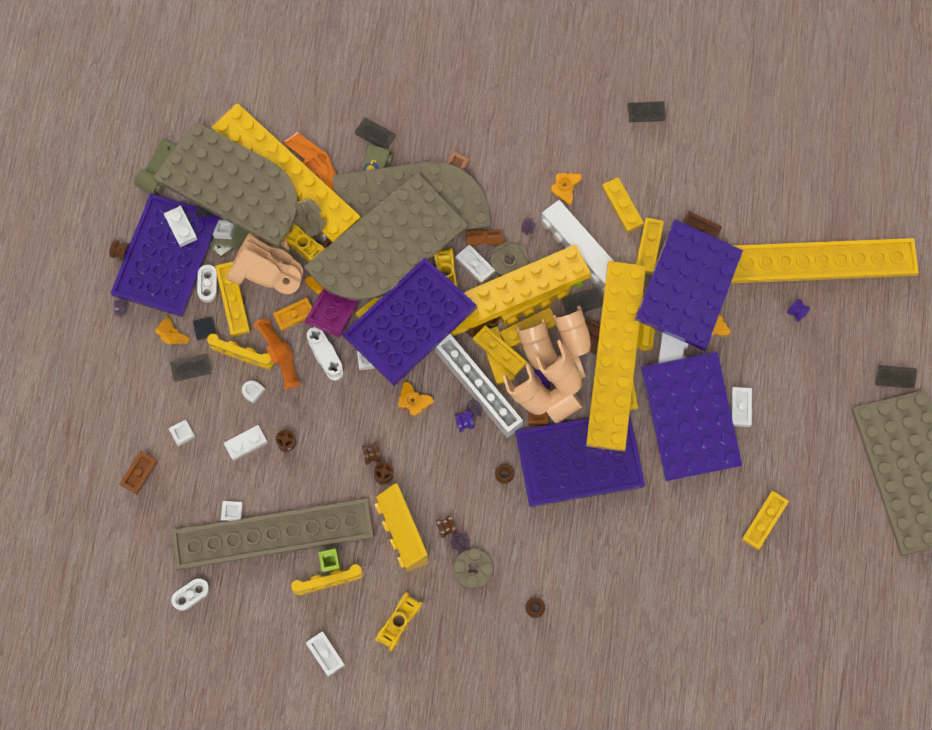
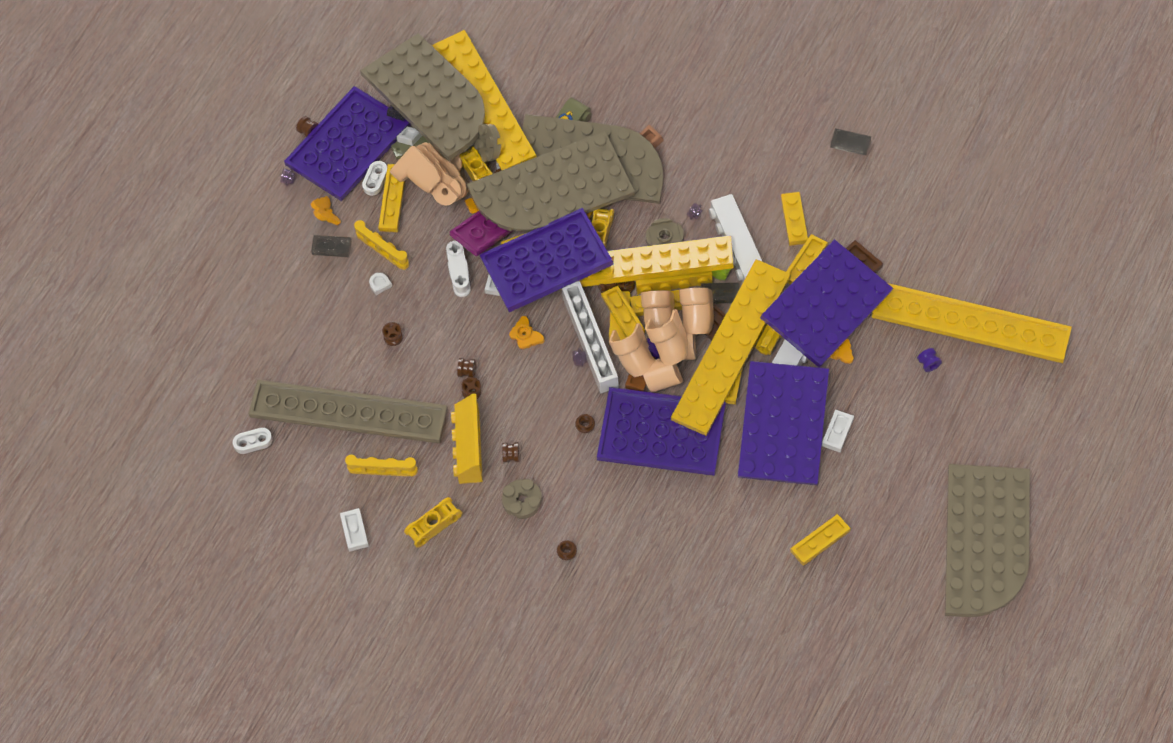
camera: 25 degrees right, 10 degrees down
(138, 473) = (248, 322): dark orange plate -> none
(145, 177) = (352, 71): olive door -> none
(180, 226) = (369, 121): white plate -> none
(182, 432) = (301, 300): white tile -> none
(203, 328) = (356, 214): black tile -> none
(231, 511) = (319, 380): white tile -> none
(245, 443) = (355, 326): white plate -> none
(280, 353) = (416, 255): orange plate -> none
(292, 314) = (441, 226): light orange plate -> none
(314, 158) = (516, 96): orange plate -> none
(329, 560) = (389, 446): lime leg -> none
(375, 133) = (582, 91): clear smoke plate -> none
(464, 420) = (565, 364): dark purple wheel -> none
(465, 542) = (518, 465): clear purple plate -> none
(475, 264) = (630, 230): white plate -> none
(479, 237) = (655, 211): dark orange plate -> none
(565, 192) = (745, 186): light orange animal -> none
(895, 376) = (1003, 448): clear smoke plate -> none

